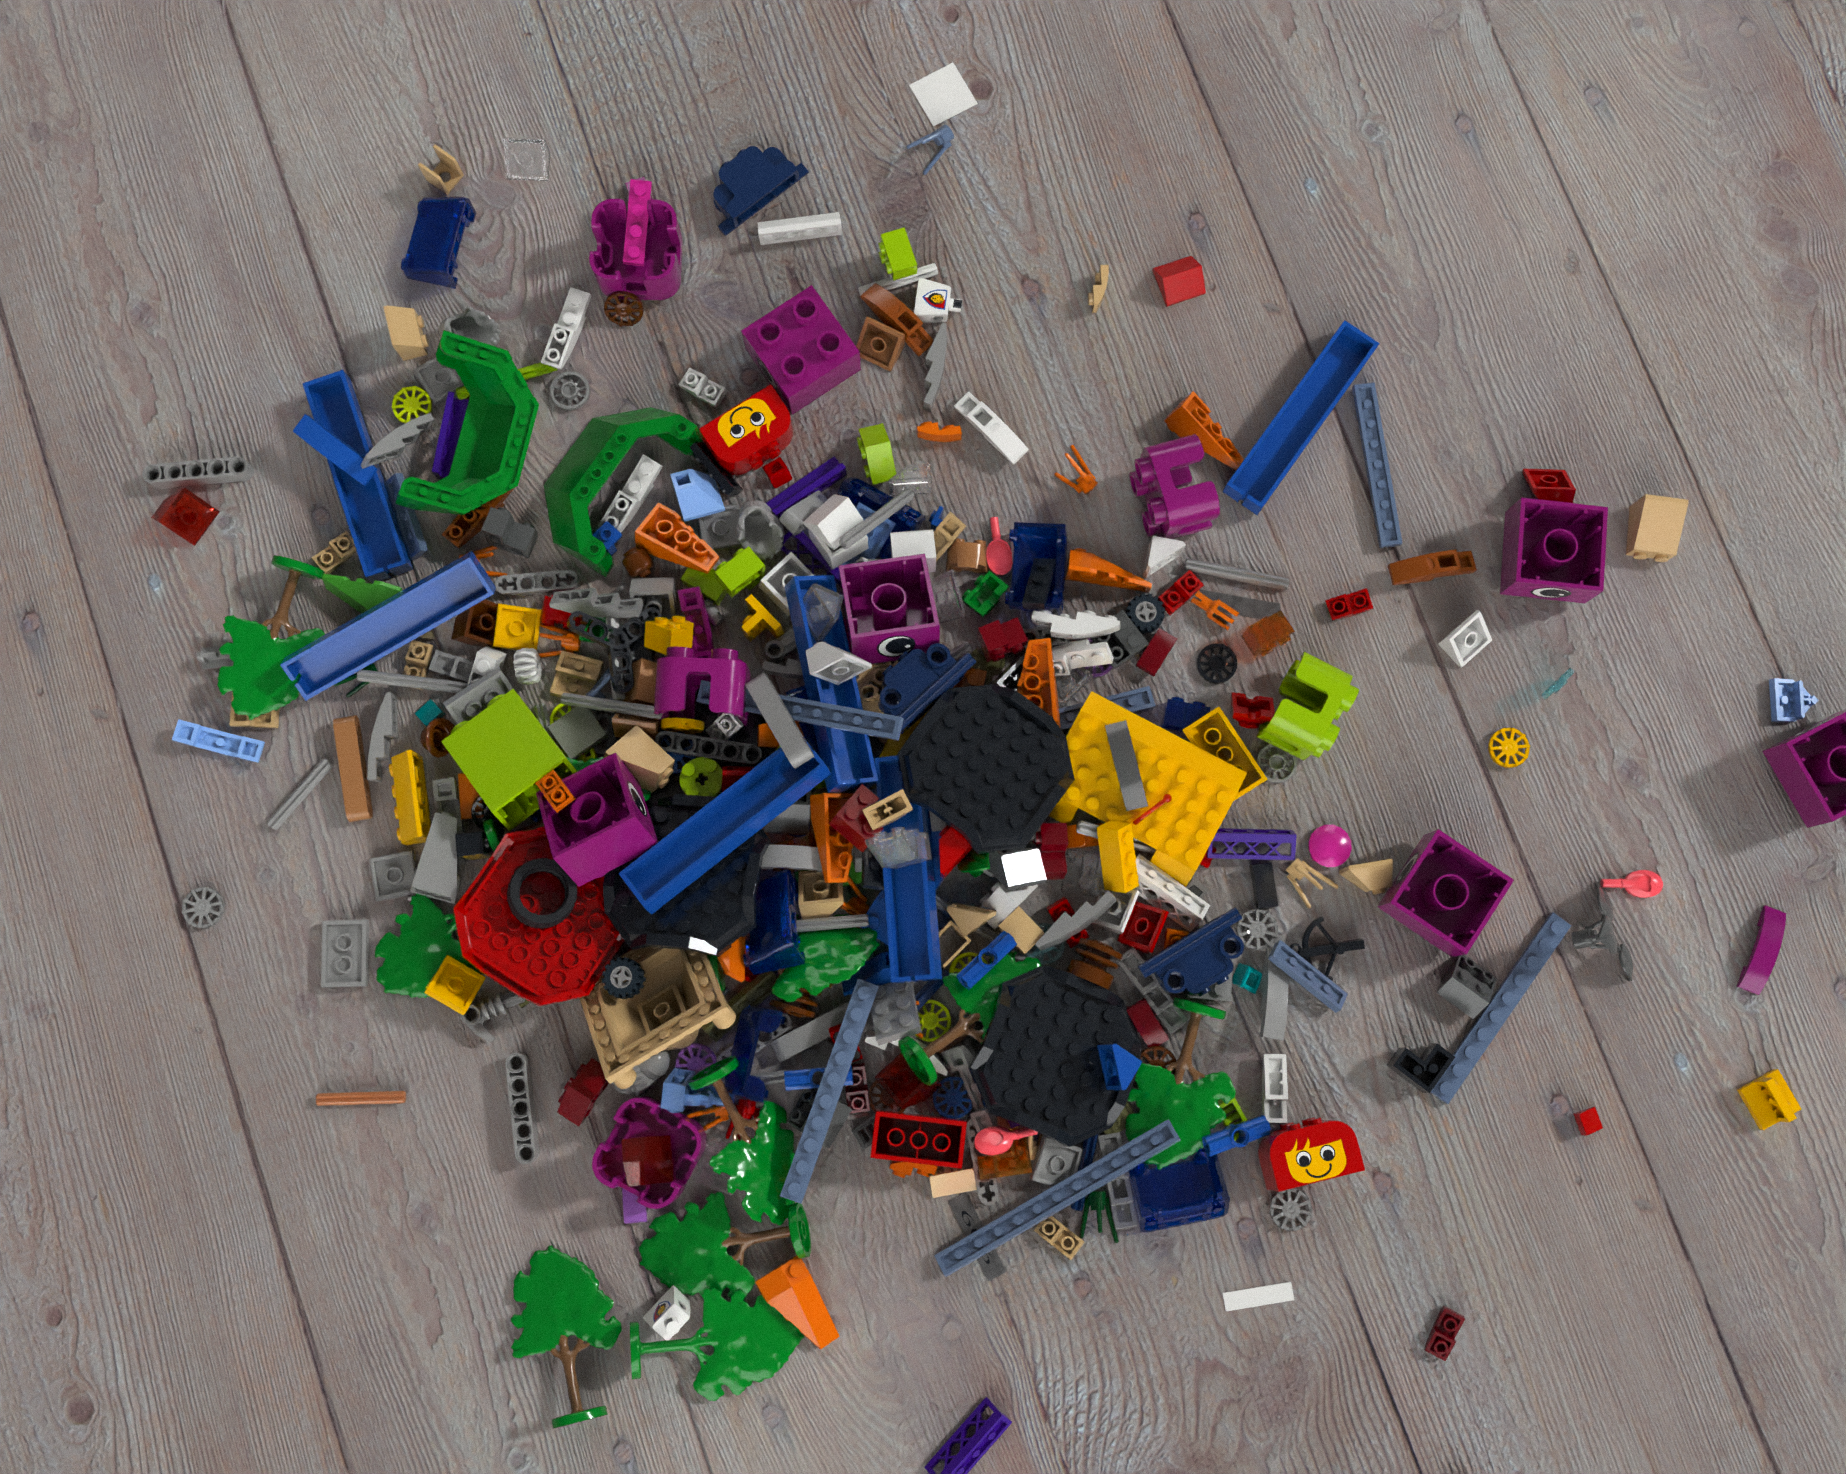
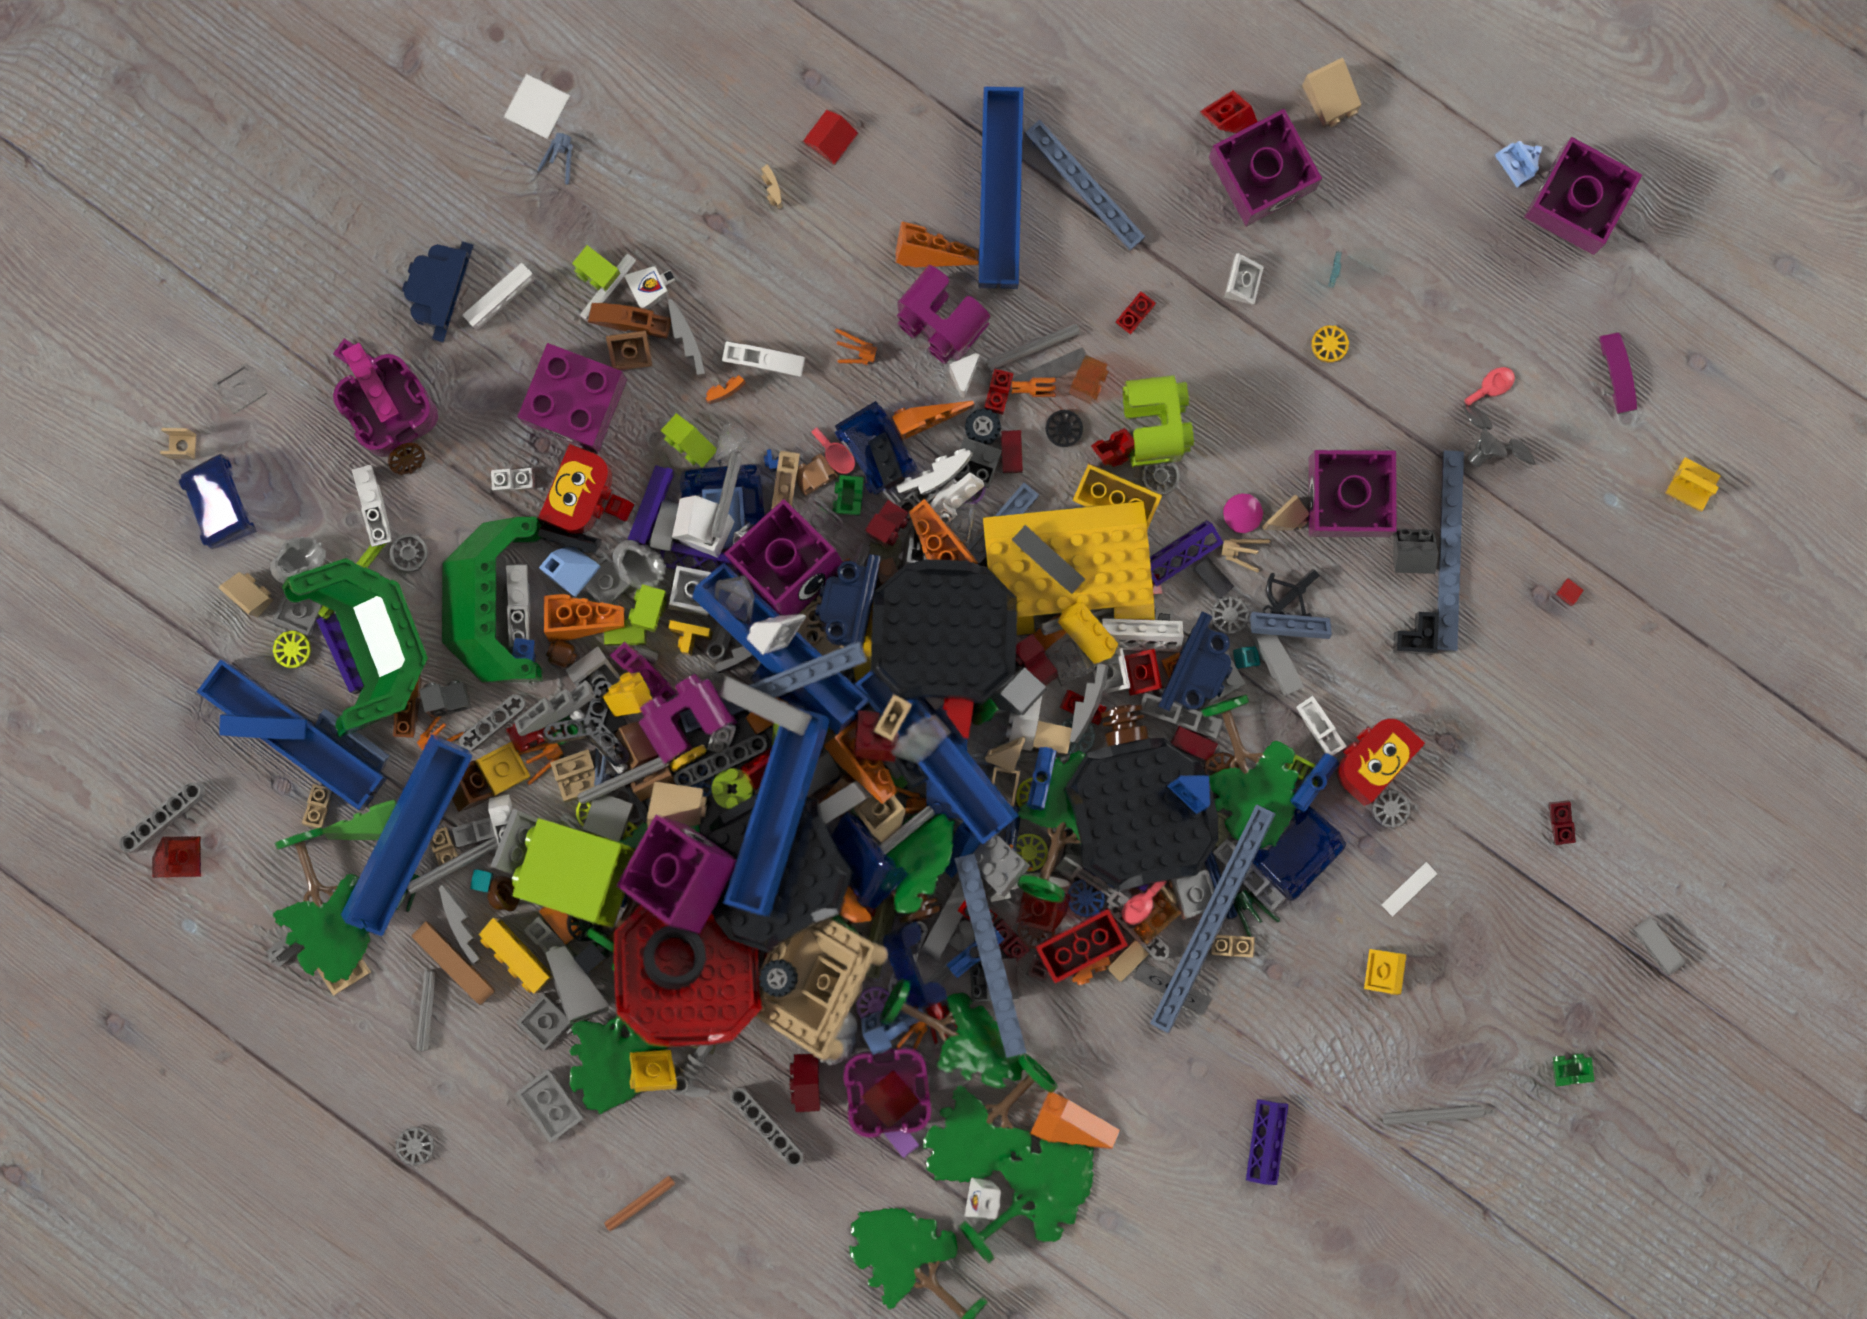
camera: 30 degrees left, 5 degrees up
(218, 741) = (334, 1013): light blue slope -> none
(396, 441) = (305, 689): light grey slope -> none
(527, 666) = (533, 792): white gear -> none
(555, 791) = (631, 874): orange slope -> none
(914, 543) = (769, 495): white slope -> none
(1166, 799) = (1096, 563): clear red hinge -> none
(1181, 714) = (1063, 489): clear blue slope -> none
(1185, 1359) = (1385, 971): none -> yellow bracket
(1431, 566) = (1179, 240): dark orange slope -> none

